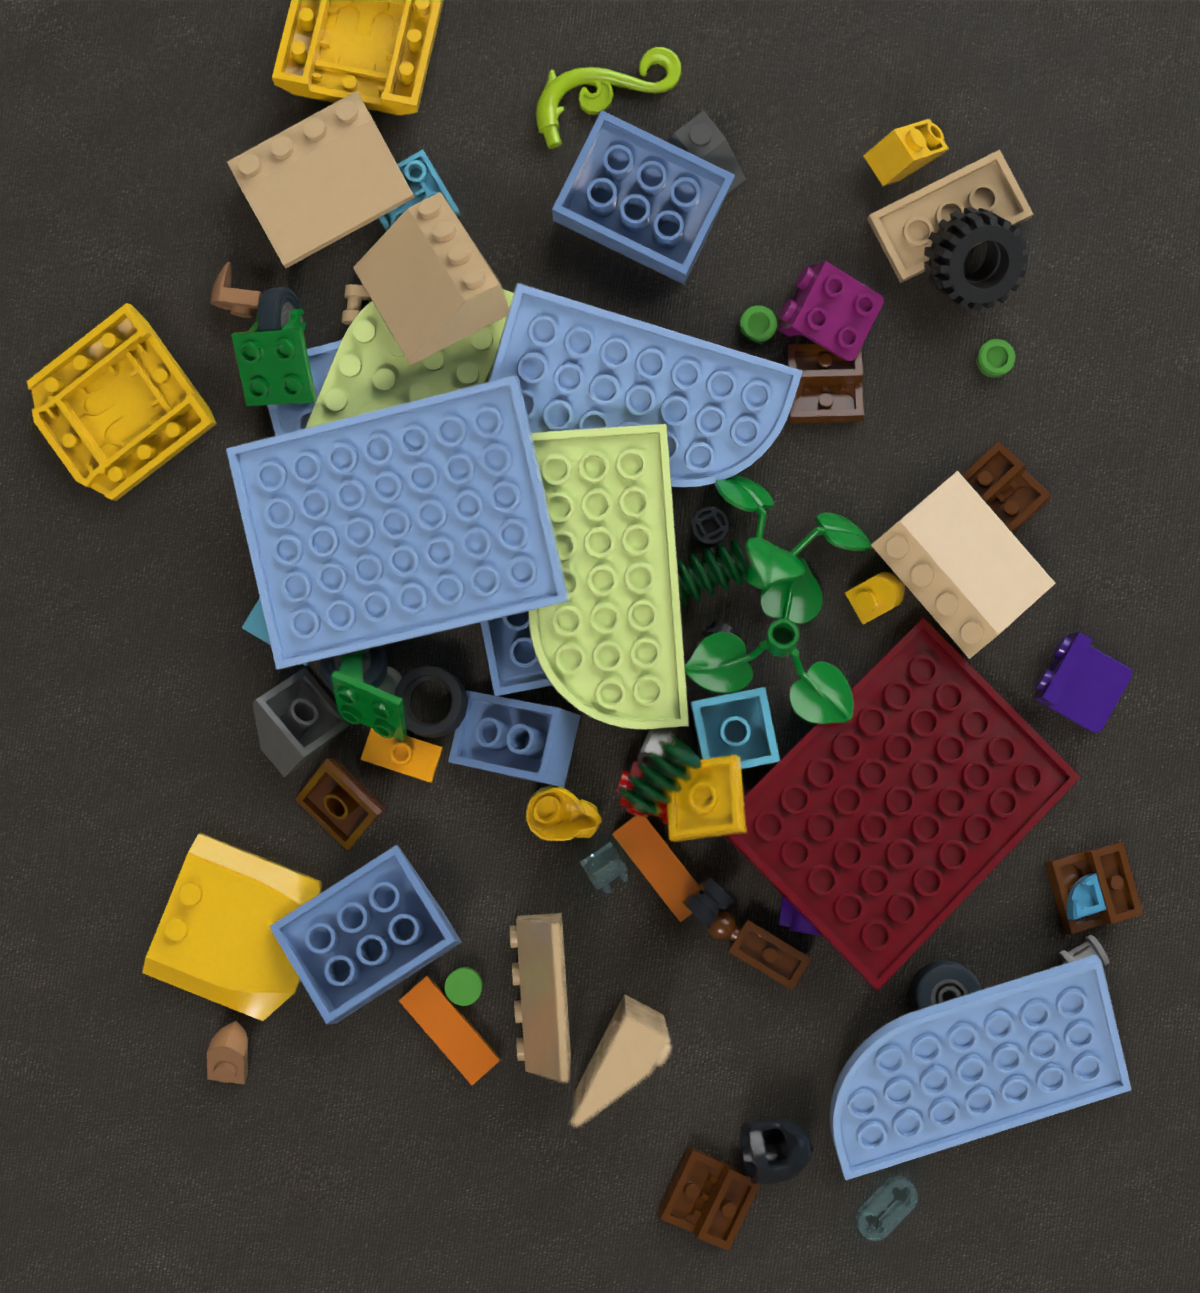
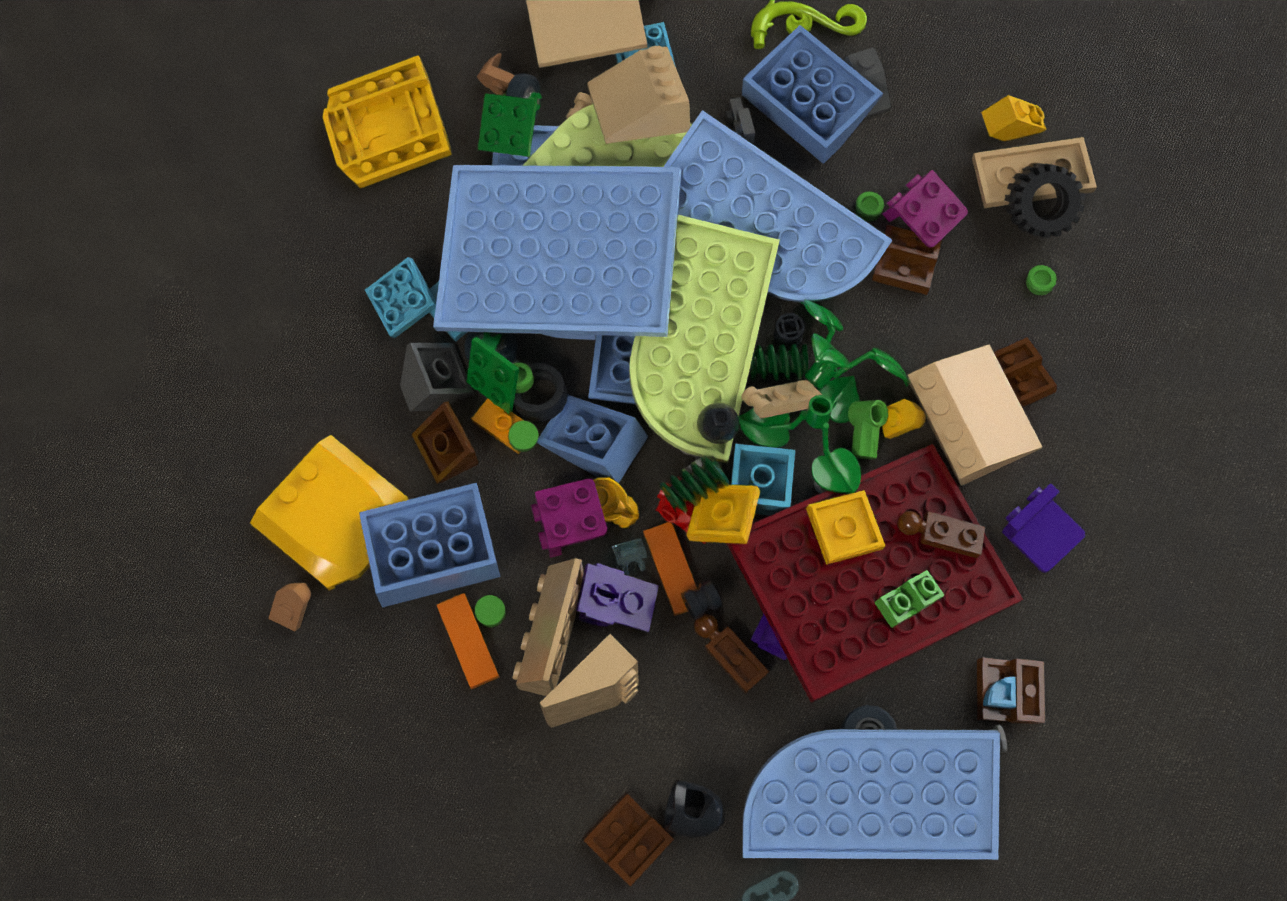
camera: 15 degrees right, 15 degrees down
(221, 633) = (401, 297): none -> medium azure tile
(407, 691) = (525, 377): none -> bright green tile
(431, 764) = (523, 436): none -> bright green tile
(520, 848) = (568, 515): none -> magenta bracket
(572, 278) = (740, 120): none -> dark grey plate
(606, 927) = (615, 598): none -> piece
(663, 685) = (718, 423): none -> black brick
(729, 623) = (780, 398): none -> tan plate
(838, 613) = (867, 419): none -> bright green piece
(853, 767) = (845, 527): none -> yellow plate
(952, 828) = (909, 599): none -> bright green slope
(968, 730) = (944, 532): none -> reddish brown plate

